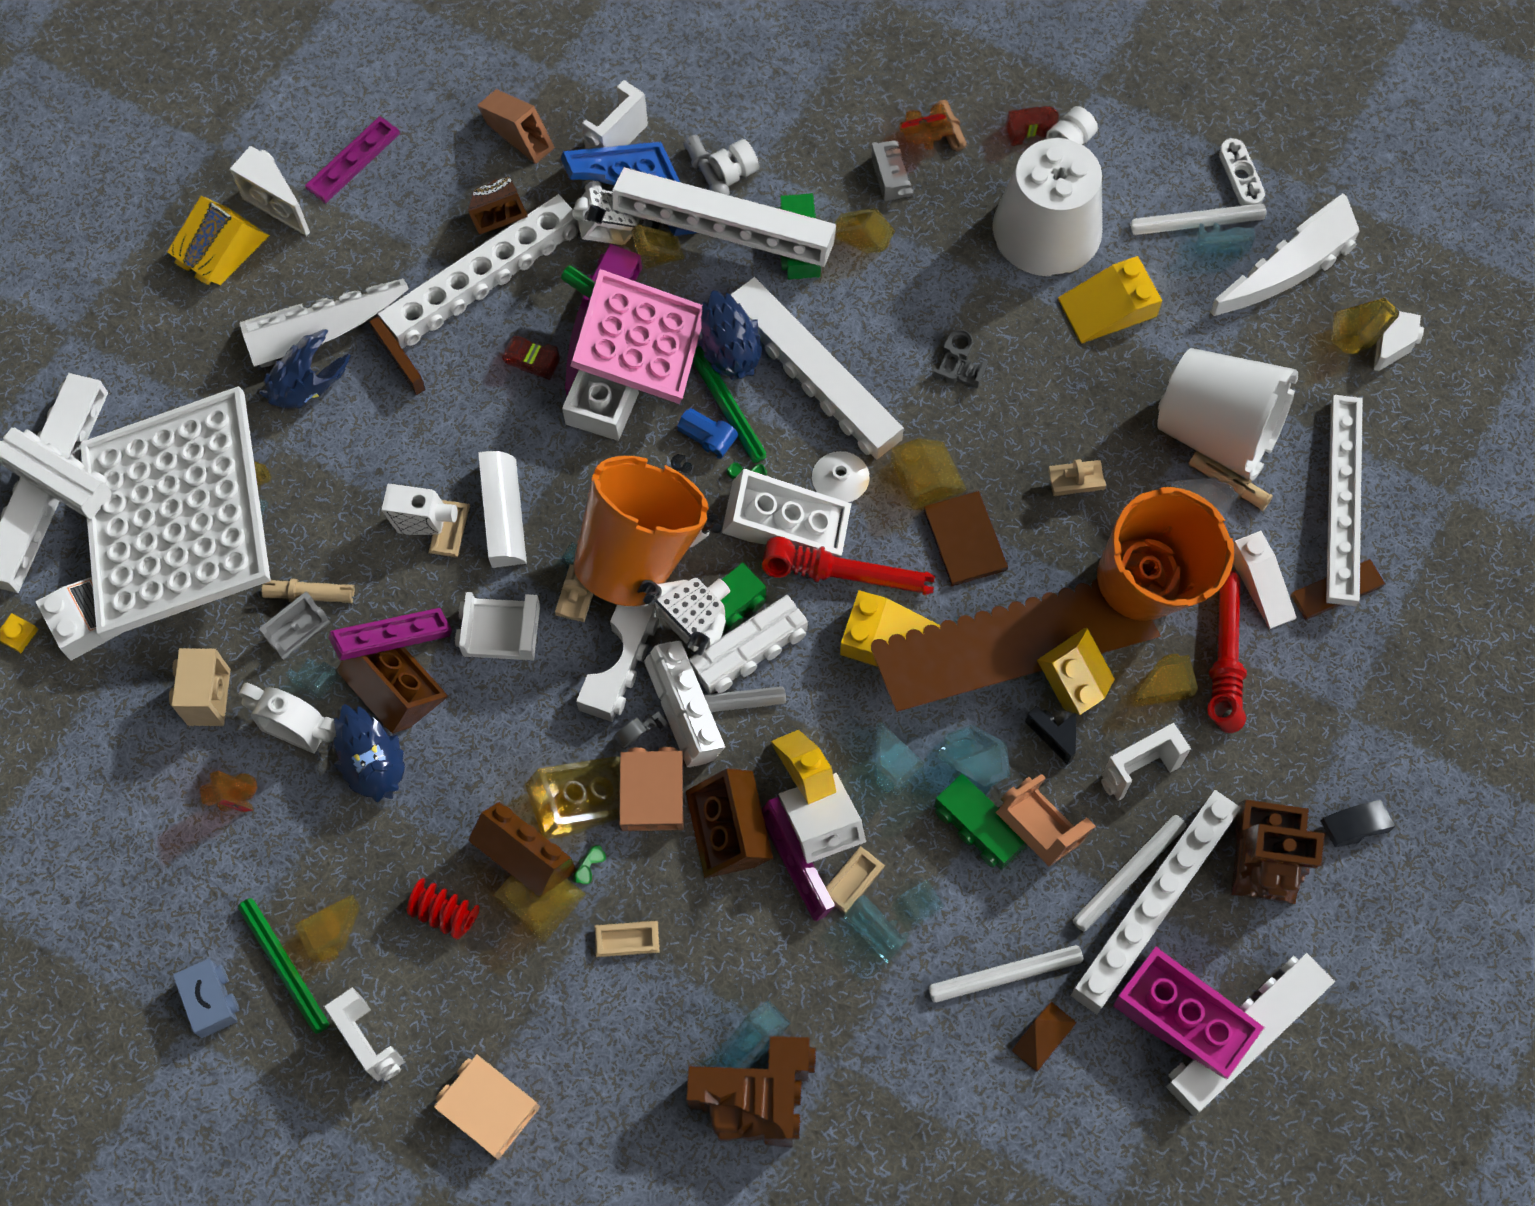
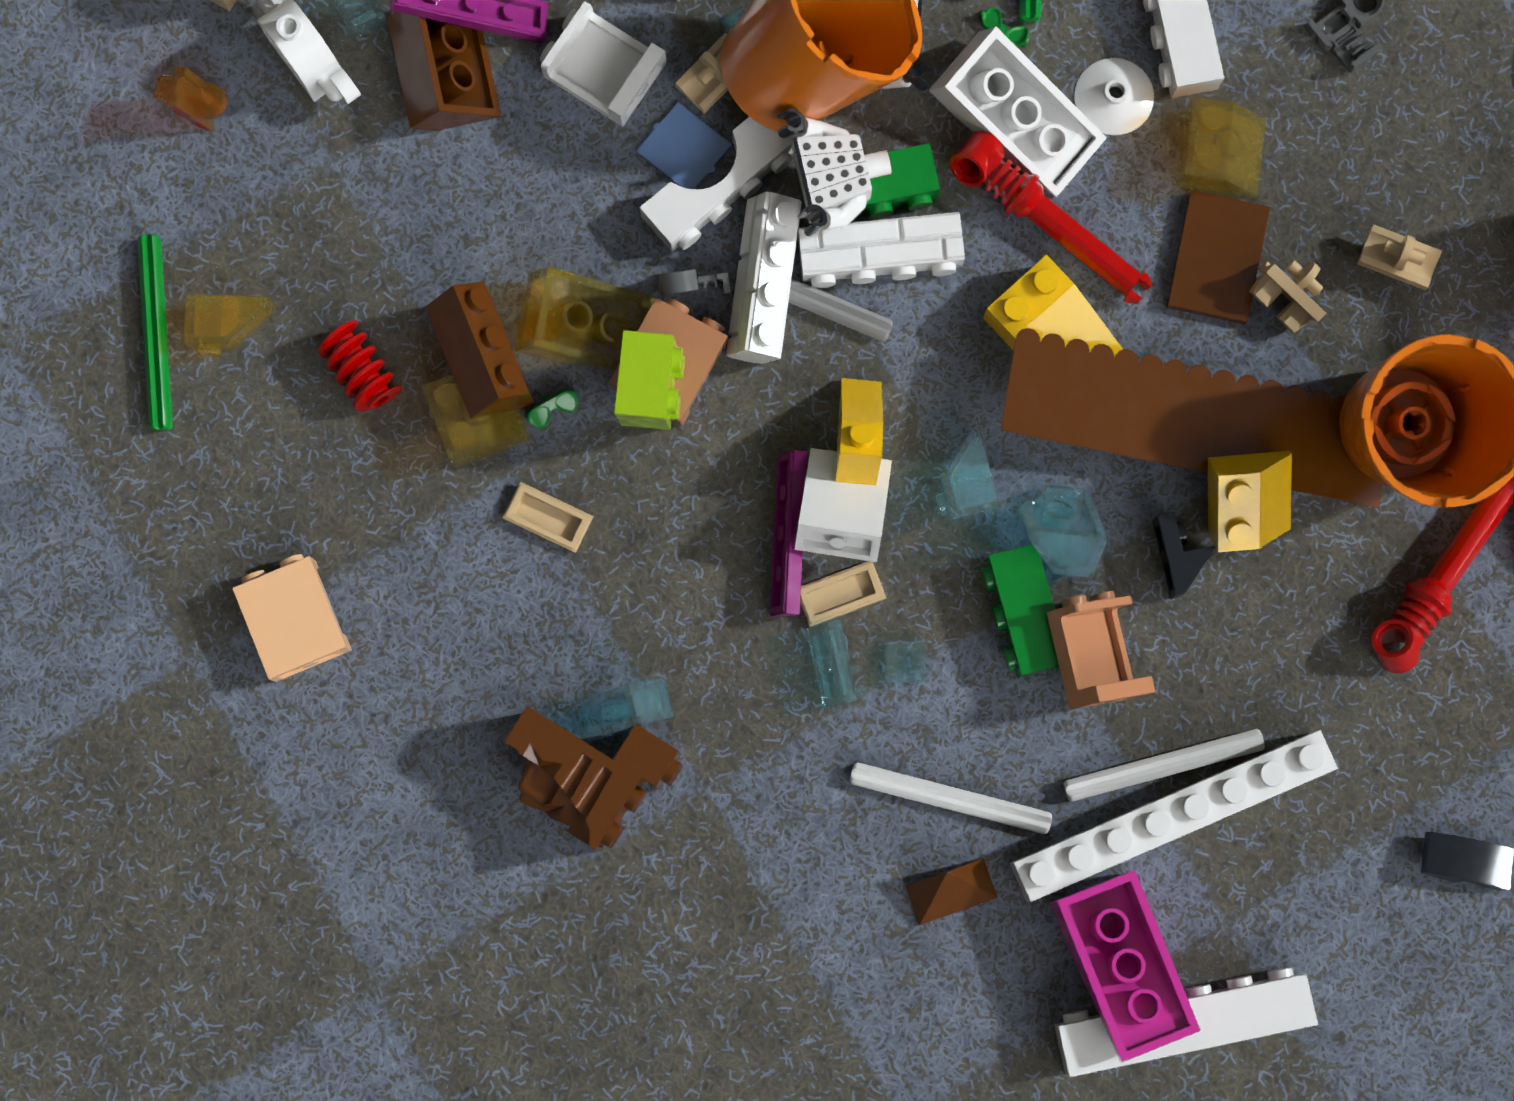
camera: 30 degrees right, 15 degrees up
(206, 997) = (52, 323): sand blue brick -> none
(344, 1012) = (184, 434): white panel -> none
(367, 754) = (368, 138): dark blue head -> none
(582, 651) = (684, 147): none -> medium blue piece
(646, 800) = (647, 380): none -> lime brick
(728, 823) = (736, 448): reddish brown slope -> none
(1011, 531) = (1275, 281): none -> tan hips
(1163, 744) = (1298, 643): white panel -> none
(1168, 682) = (1351, 569): clear yellow slope -> none
(1273, 851) = (1343, 839): reddish brown brick -> none

